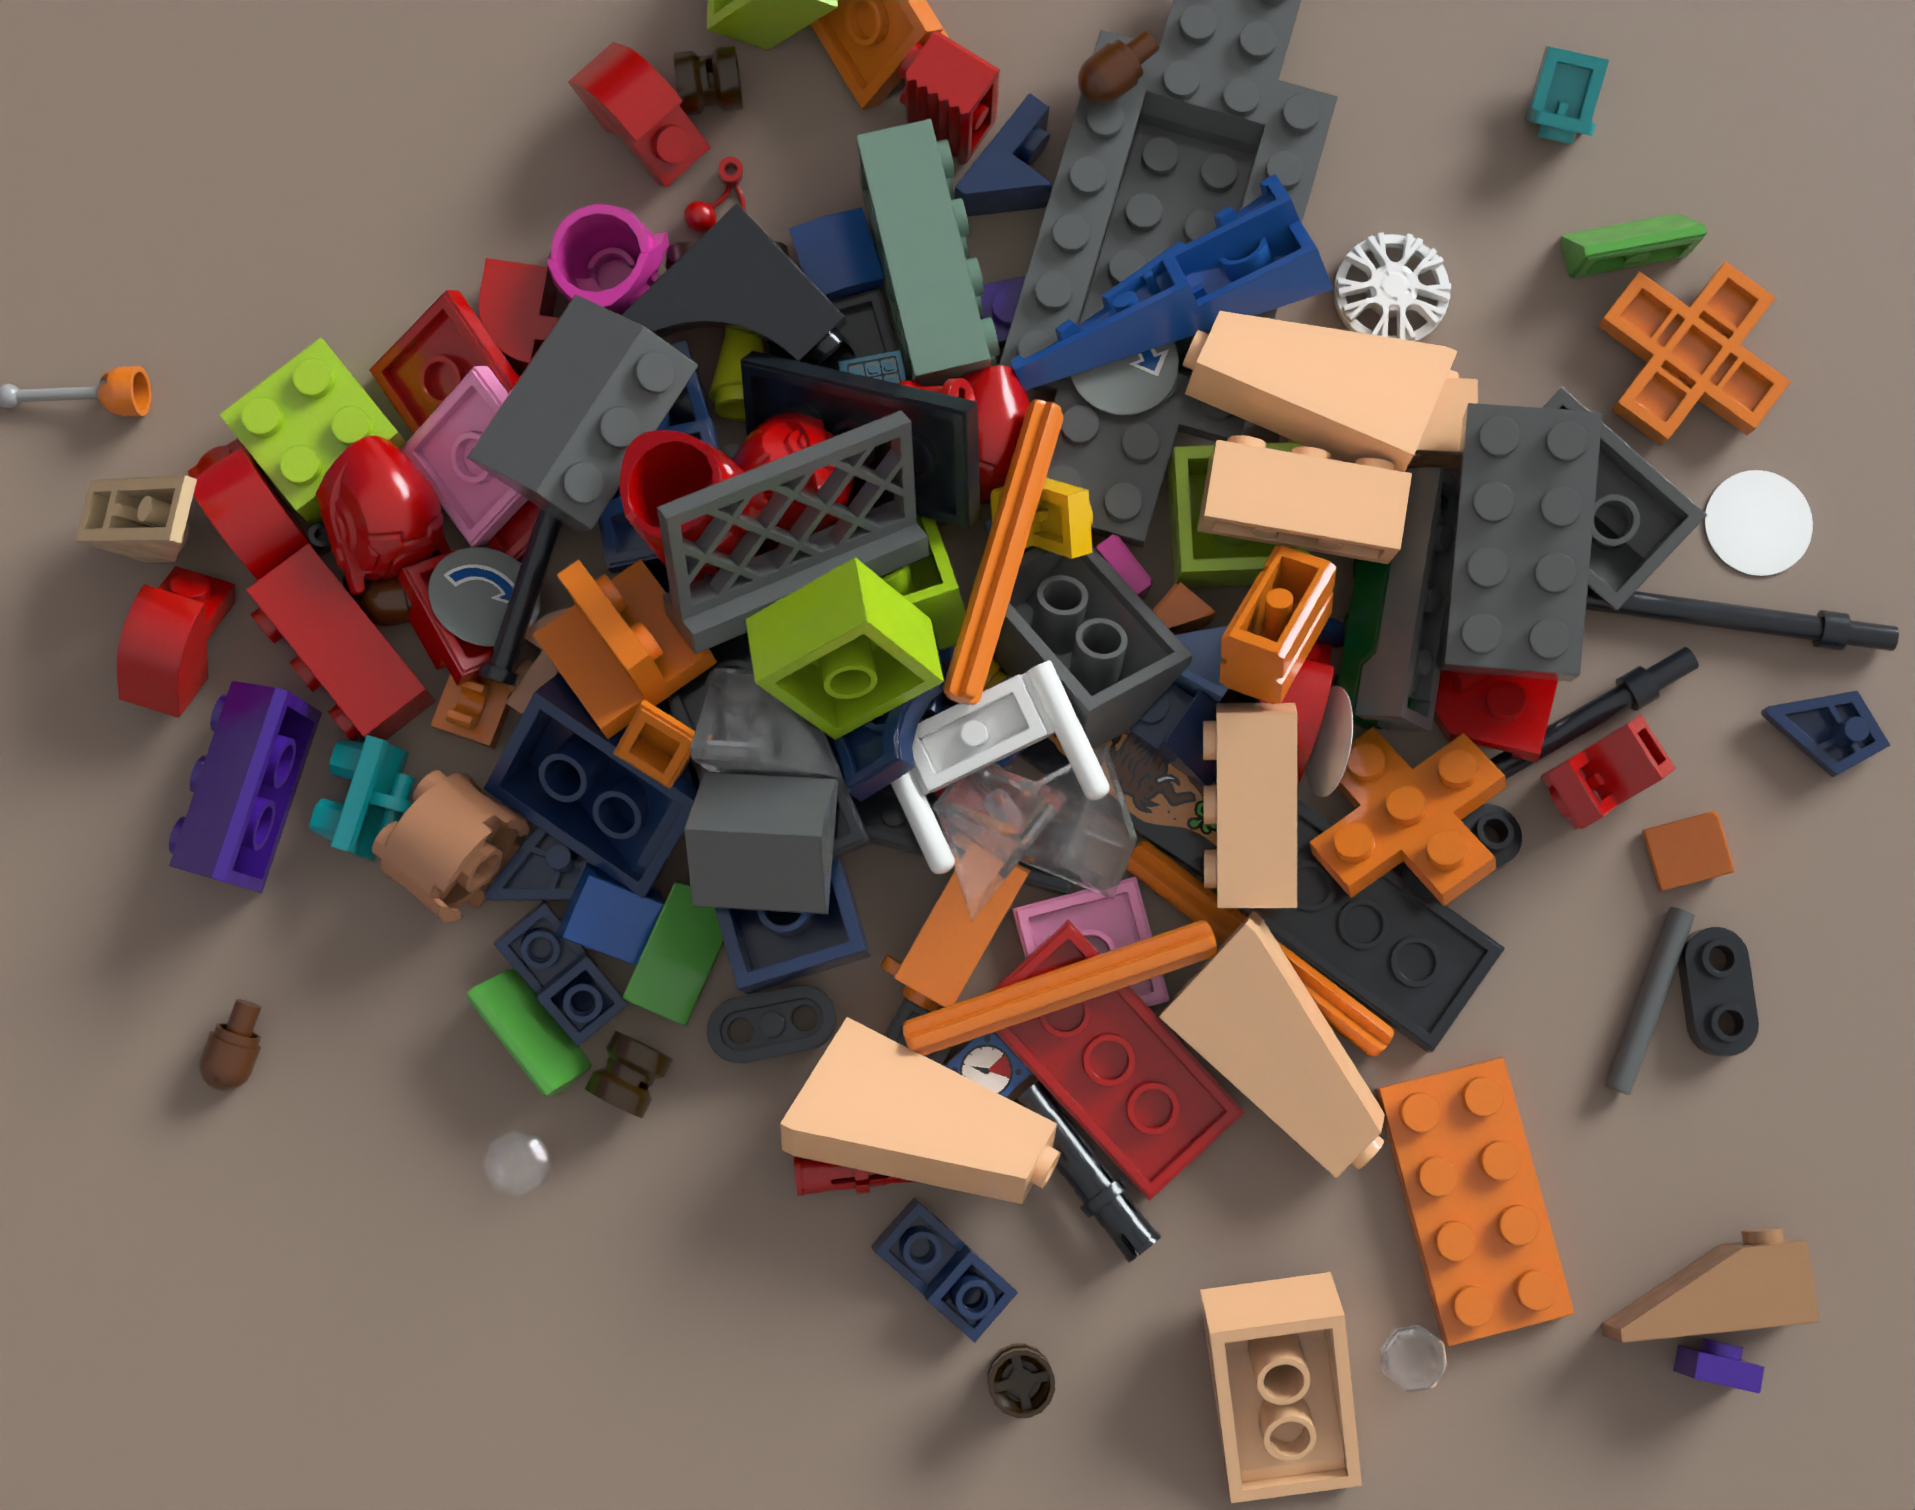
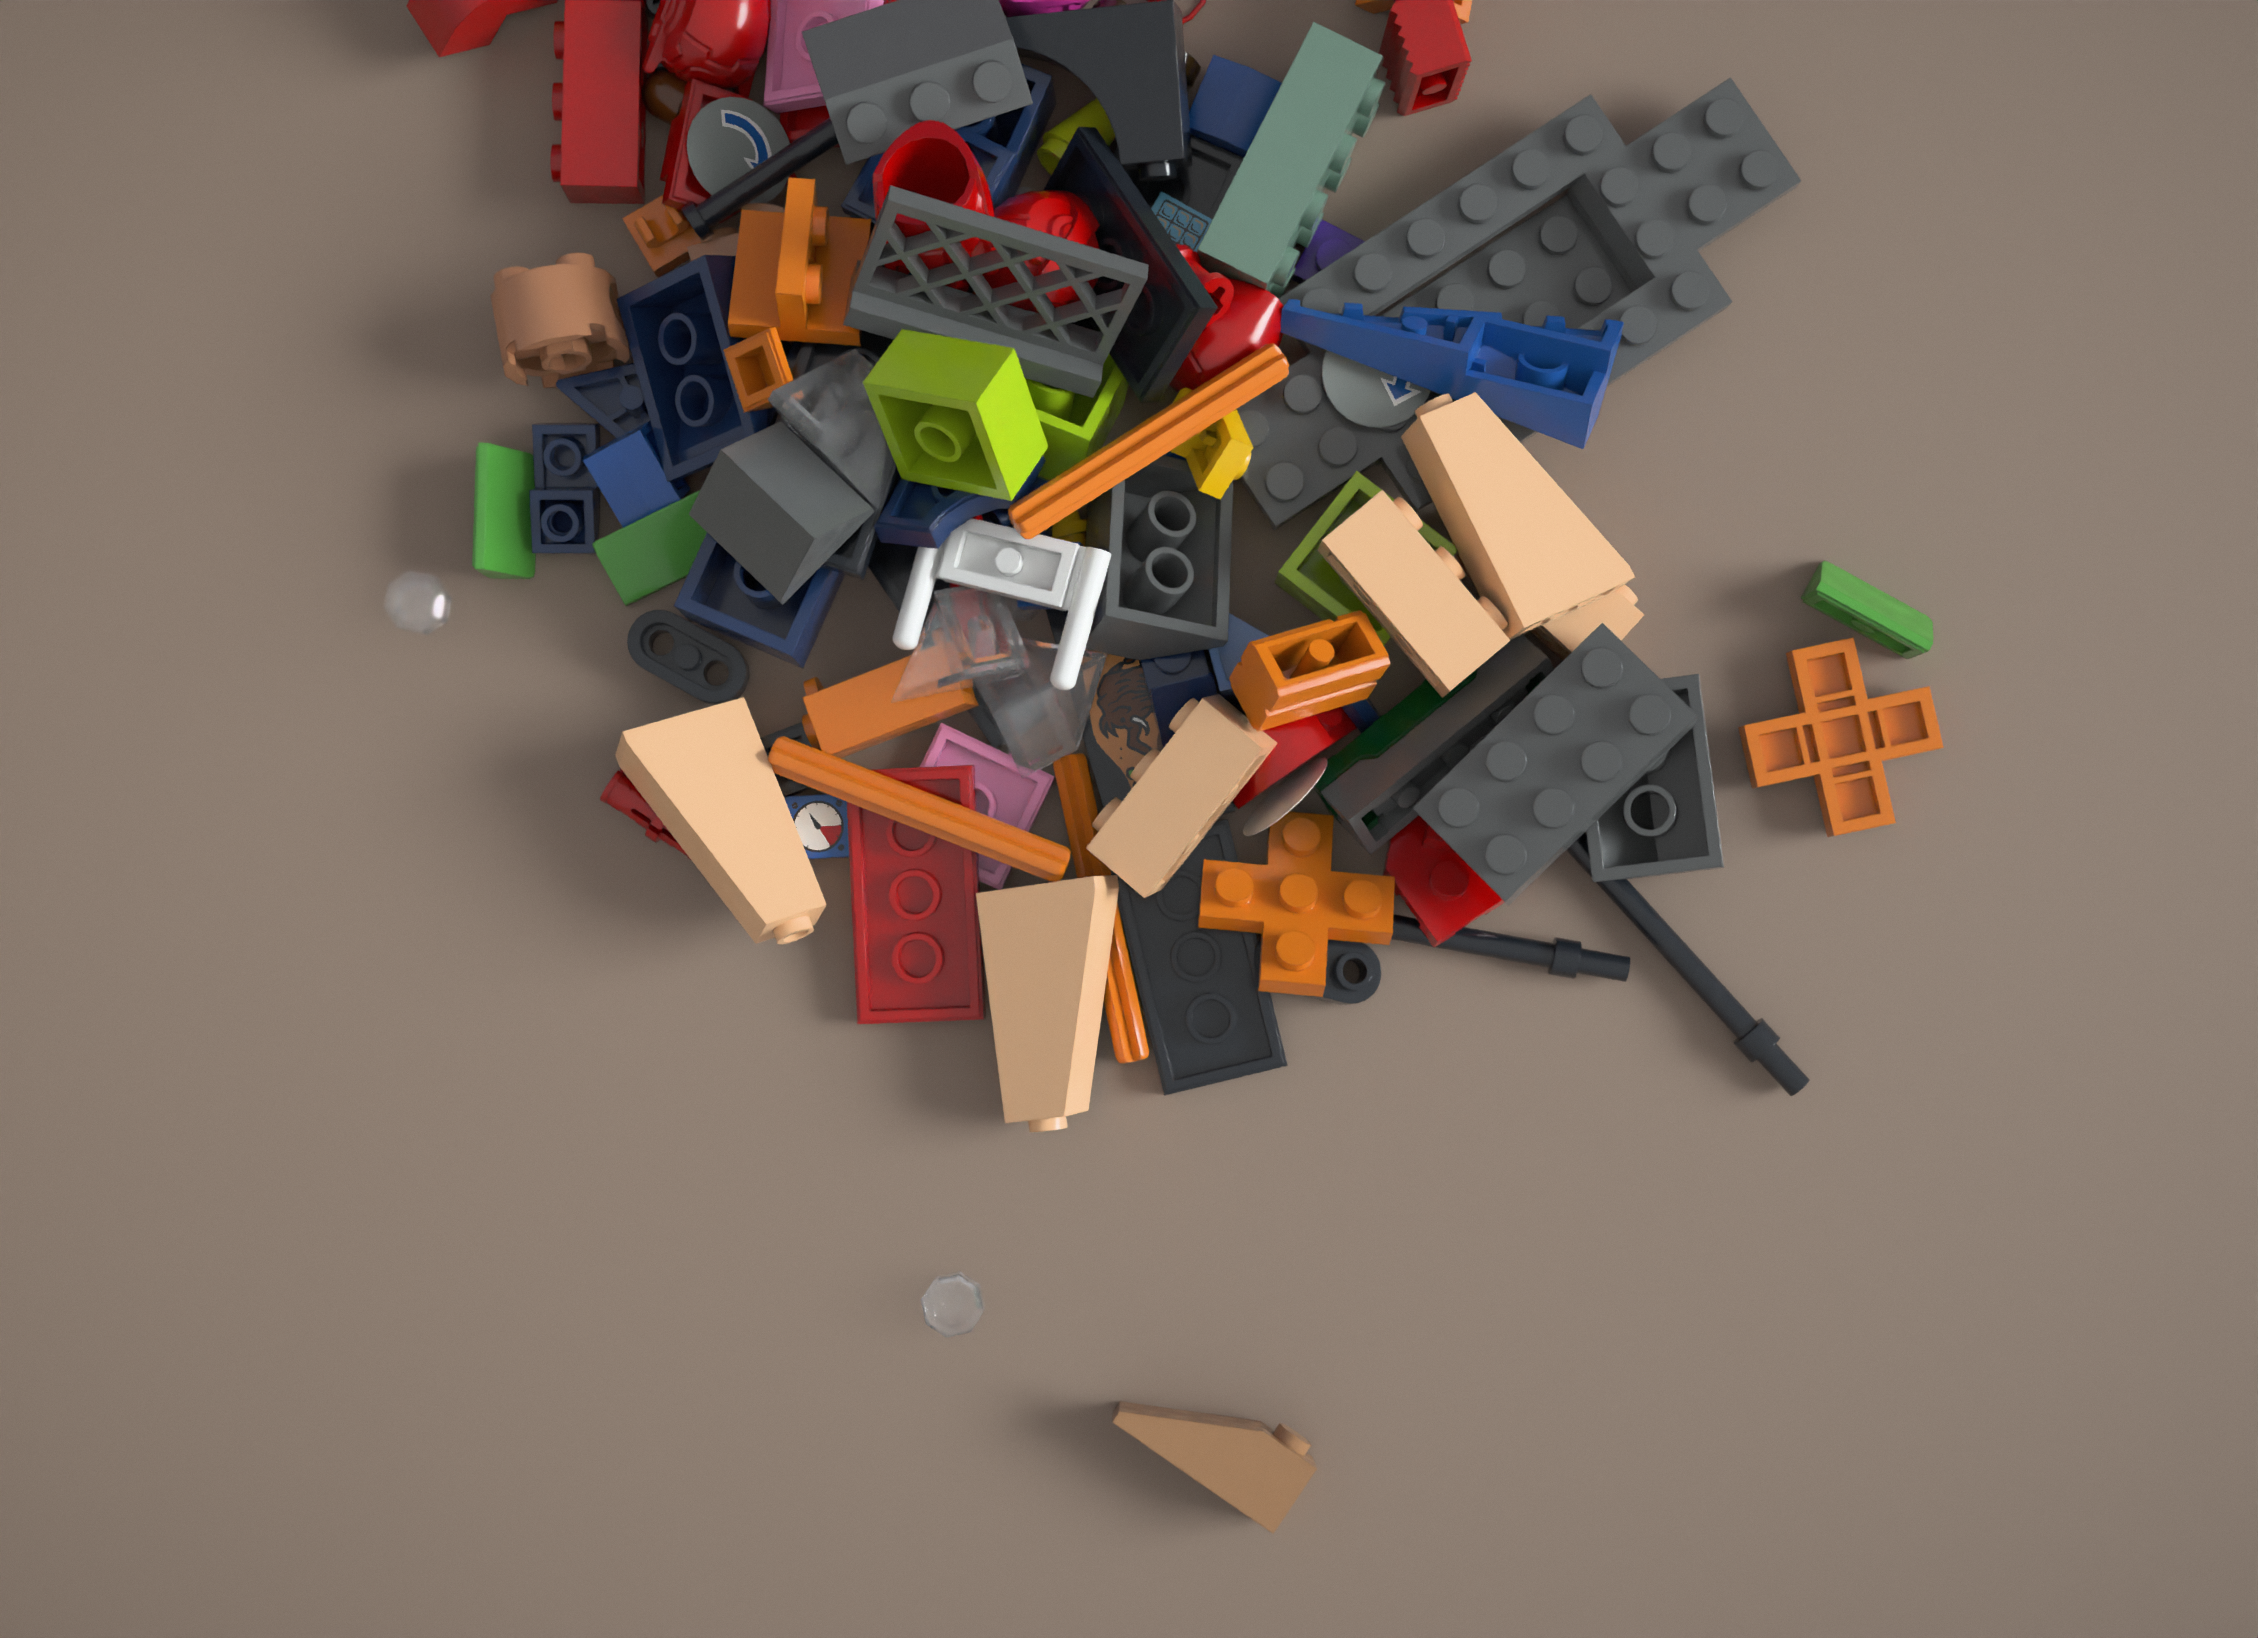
camera: 45 degrees right, 5 degrees up
(232, 1048) = (279, 342): reddish brown cylinder -> none
(244, 785) = (444, 152): dark purple slope -> none
(374, 799) = (534, 236): teal hips -> none
(628, 1074) = (551, 605): dark brown wheel -> none
(944, 1269) = (664, 946): dark blue slope -> none
(999, 176) = (1411, 145): dark blue slope -> none
(1023, 1392) = (639, 1069): dark brown wheel -> none
(1092, 1181) = (827, 962): black pin -> none
(1115, 68) = (1567, 134): reddish brown cylinder -> none
(1125, 564) = (1244, 535): dark pink tile -> none
(1183, 610) = (1256, 603): orange slope -> none
(1282, 1386) = (836, 1239): light nougat slope -> none
(1392, 287) = (1648, 492): white wheel -> none
(1474, 1202) = (1100, 1231): orange plate -> none
(1566, 94) = (1921, 450): teal bracket -> none
(1607, 773) = (1479, 999): red brick -> none
(1650, 1000) = (1365, 1198): dark grey bar -> none
(1688, 851) = (1492, 1111): orange slope -> none
(1711, 992) = (1419, 1233): black plate -> none
(1719, 1364) = (1175, 1503): dark purple plate -> none
(1758, 522) = (1777, 912): white sticker -> none
(1830, 729) = (1686, 1114): dark blue piece -> none

